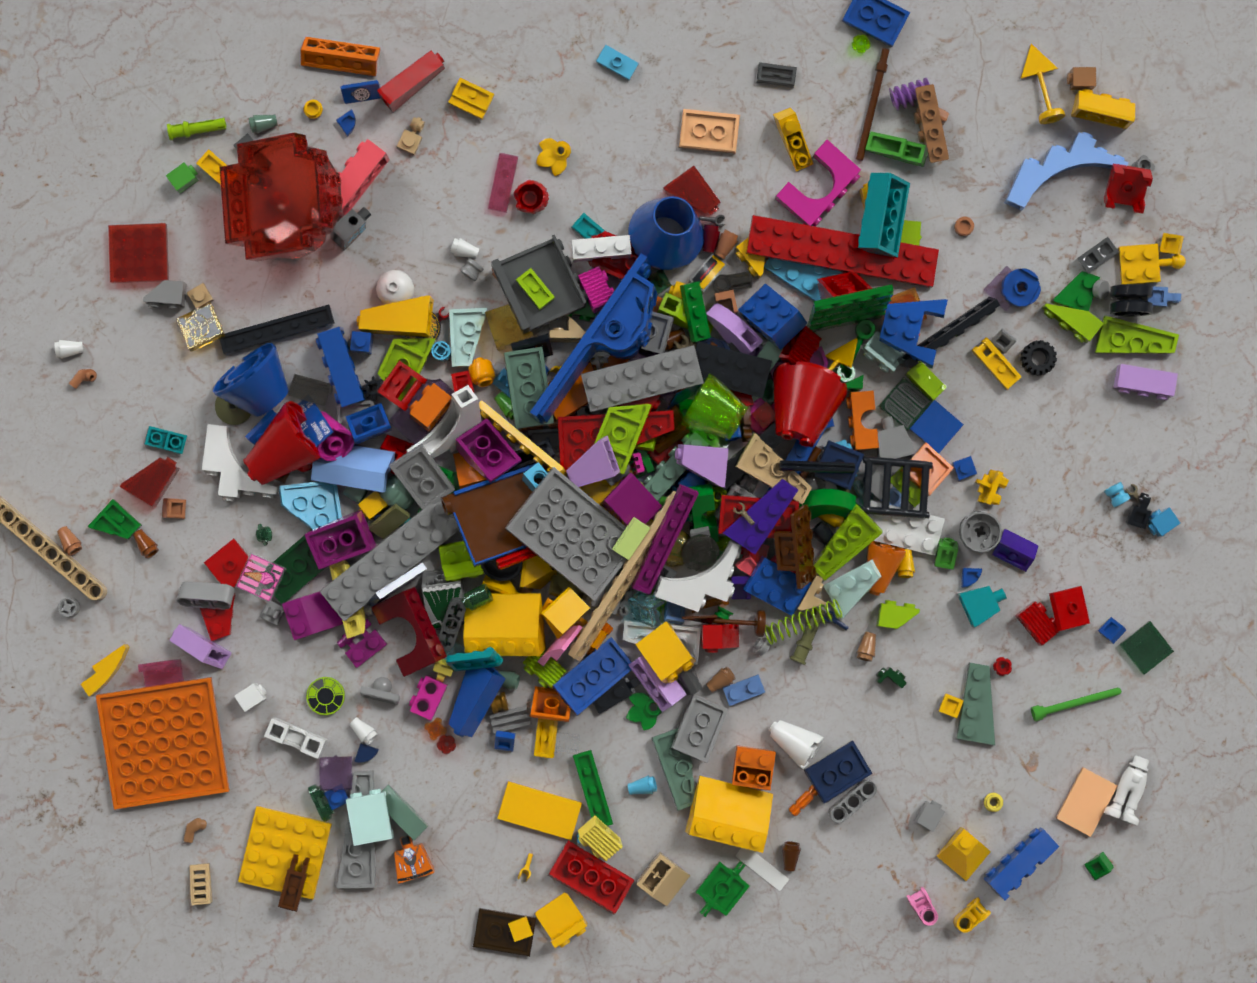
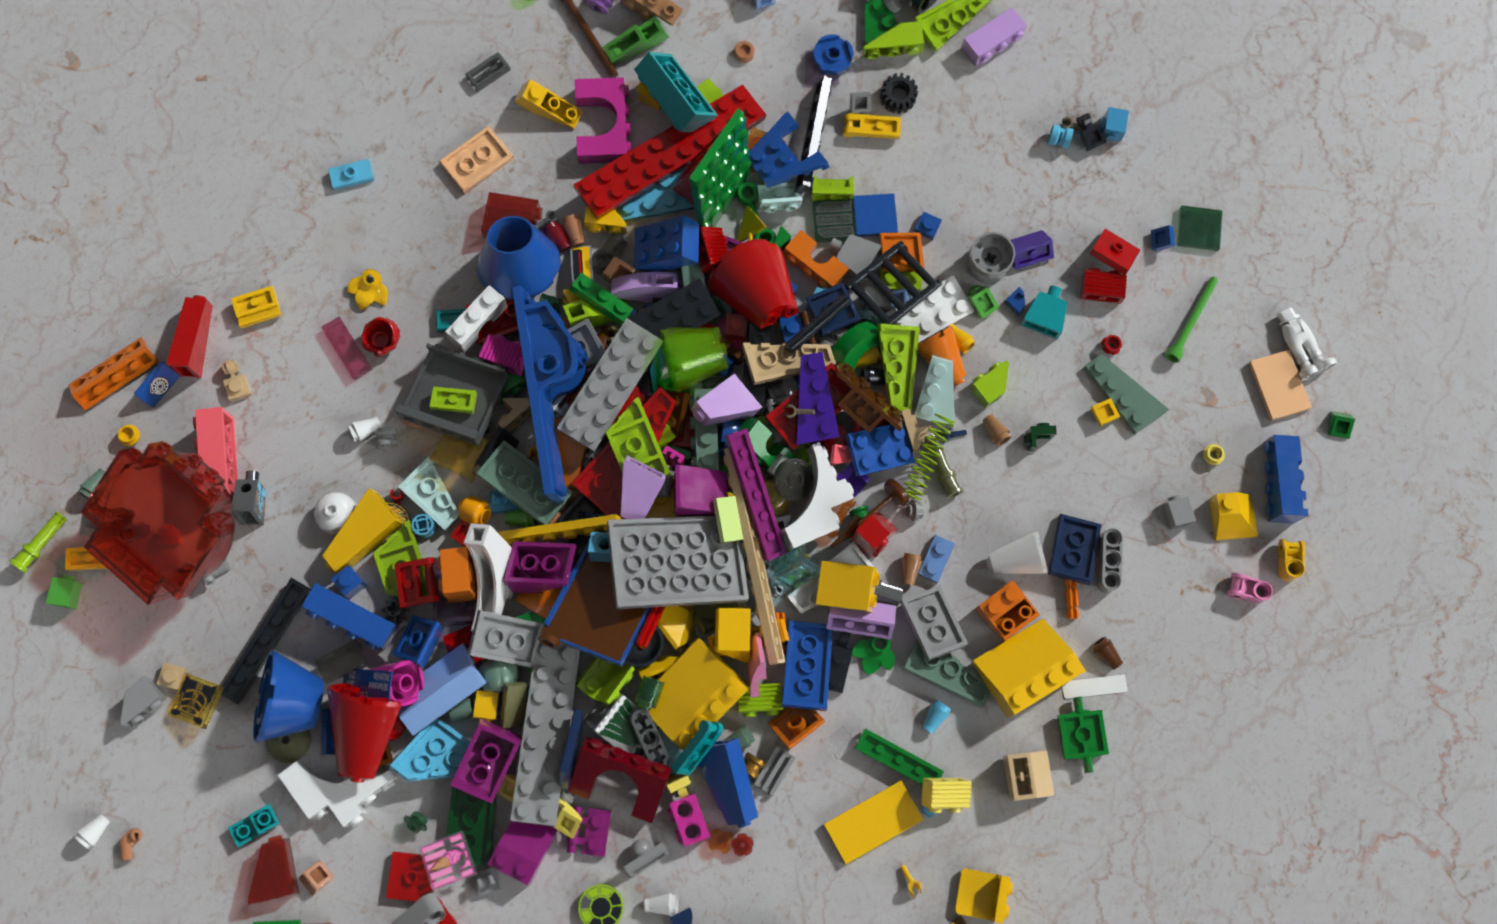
camera: 50 degrees left, 10 degrees down
(138, 253) = (82, 691): clear red plate -> none
(347, 122) = (168, 419): blue tile -> none
(504, 741) = (788, 792): blue plate -> none
(545, 738) = (818, 755): yellow plate -> none
(591, 877) = (970, 834): red slope -> none
(674, 613) = (819, 550): medium blue plate -> none
(989, 486) = (961, 219): yellow hips -> none

